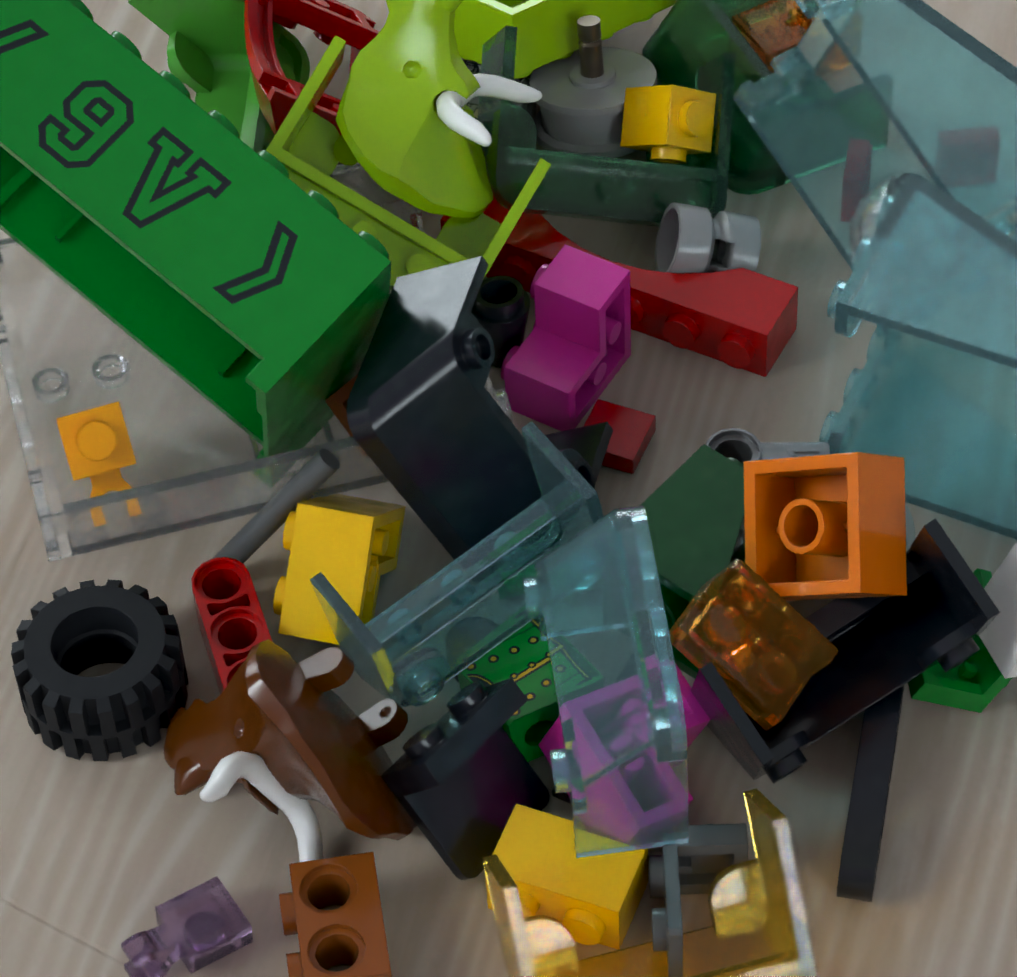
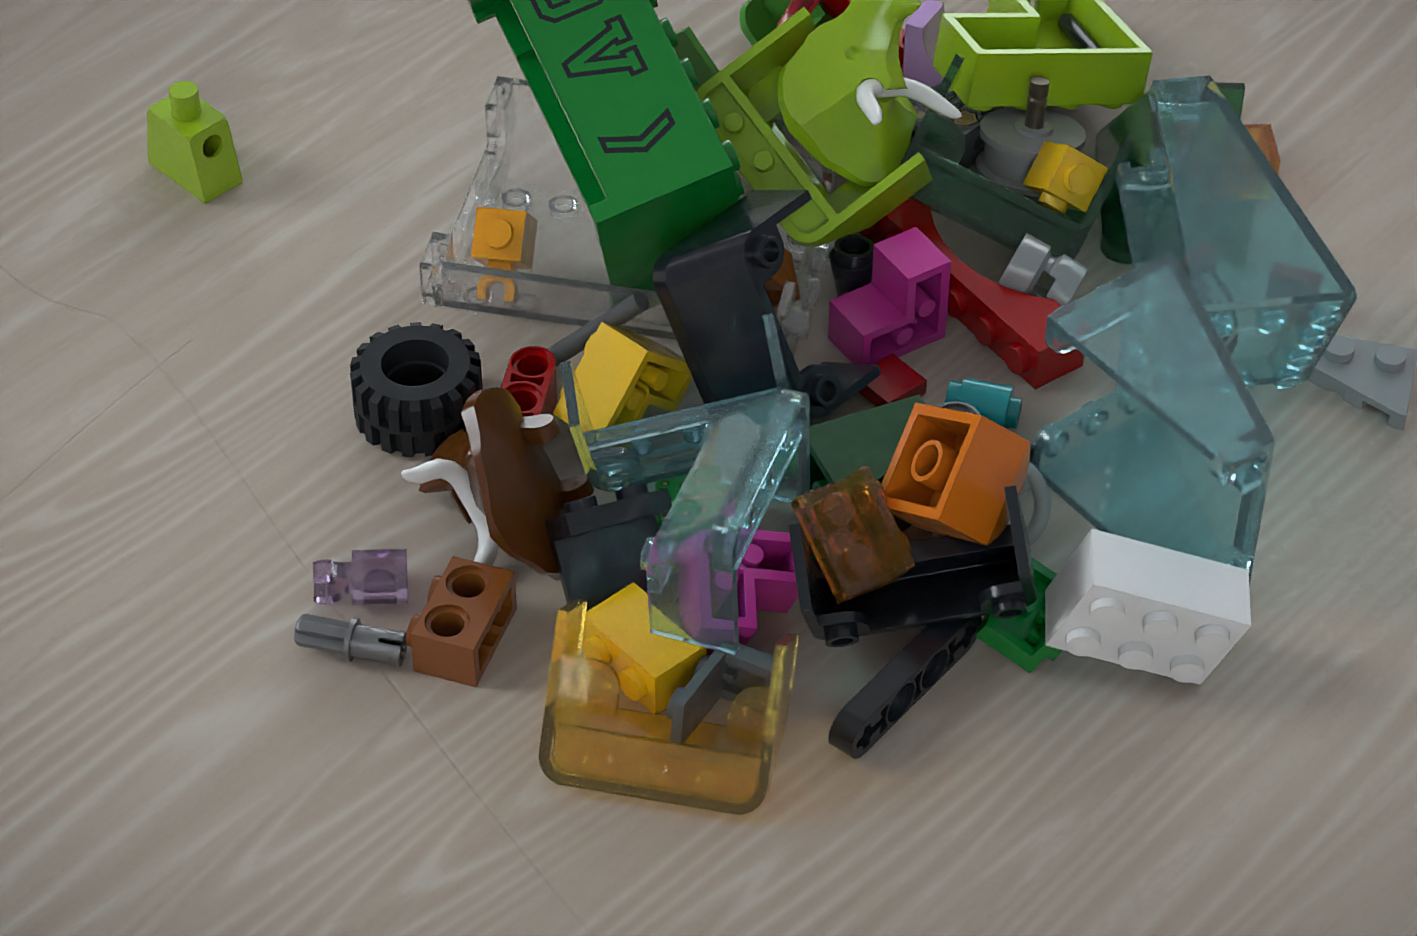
camera: 25 degrees right, 5 degrees down
(742, 409) = (989, 399): none -> teal brick

